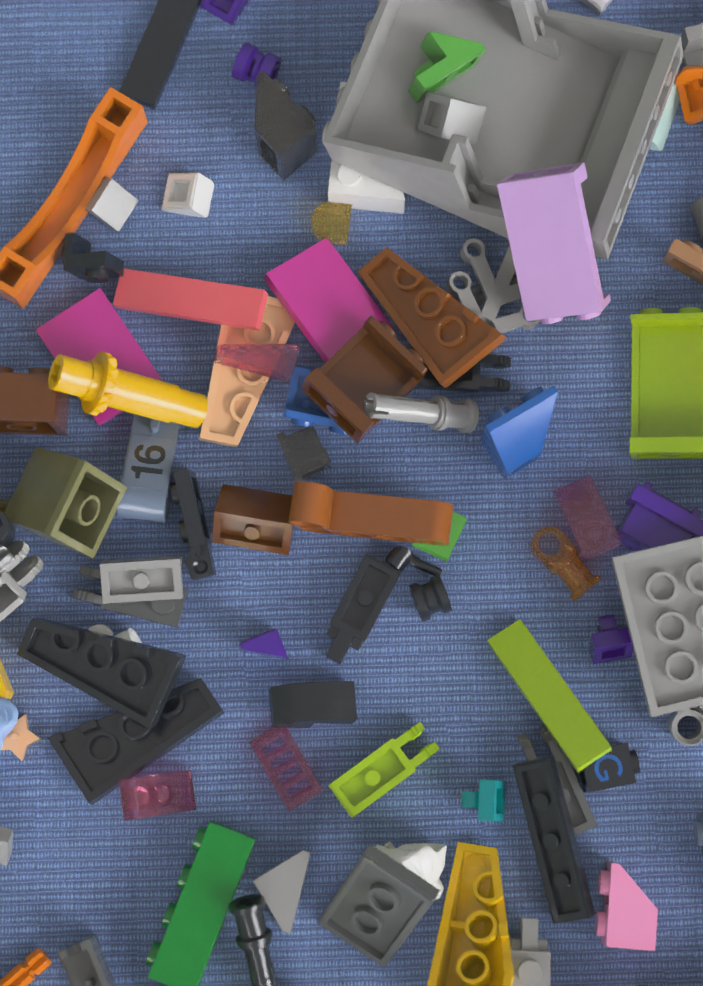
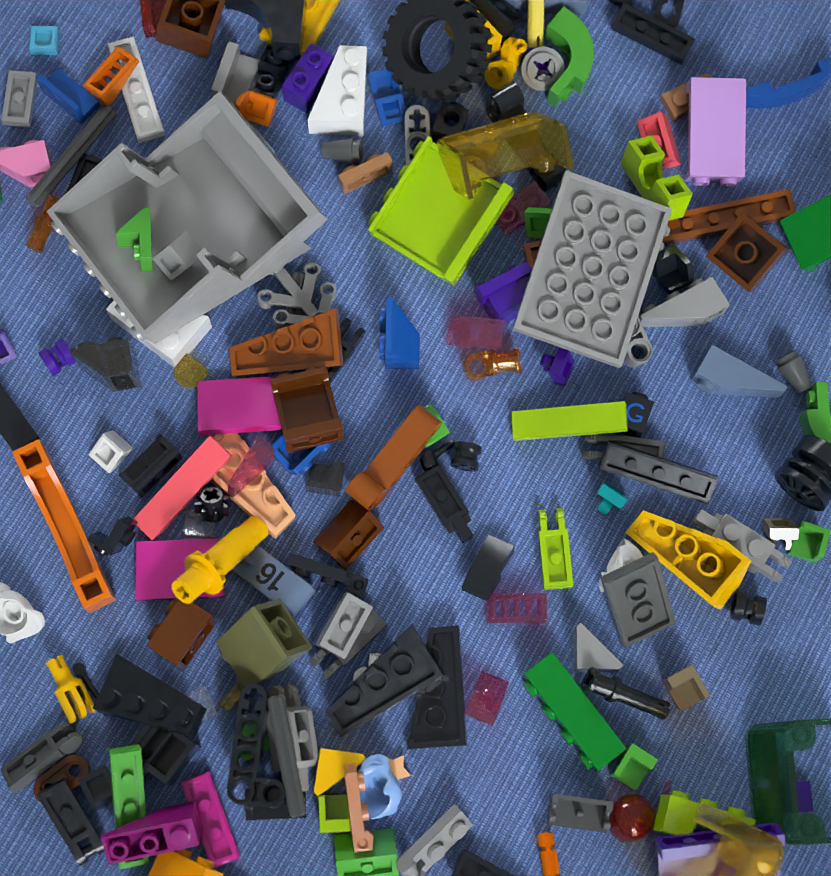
camera: 65 degrees left, 5 degrees down
(112, 204) = (86, 501): tile -> none
(164, 345) = (196, 528): none -> clear slope
(191, 344) = (212, 504): none -> black gear
(195, 249) = (151, 466): none -> black hinge
(265, 644) = (433, 574): dark purple slope -> none
(436, 412) = (354, 380): light grey pin -> none
(552, 243) = (298, 243): lavender panel -> none
(627, 913) = (726, 456): bright pink slope -> none

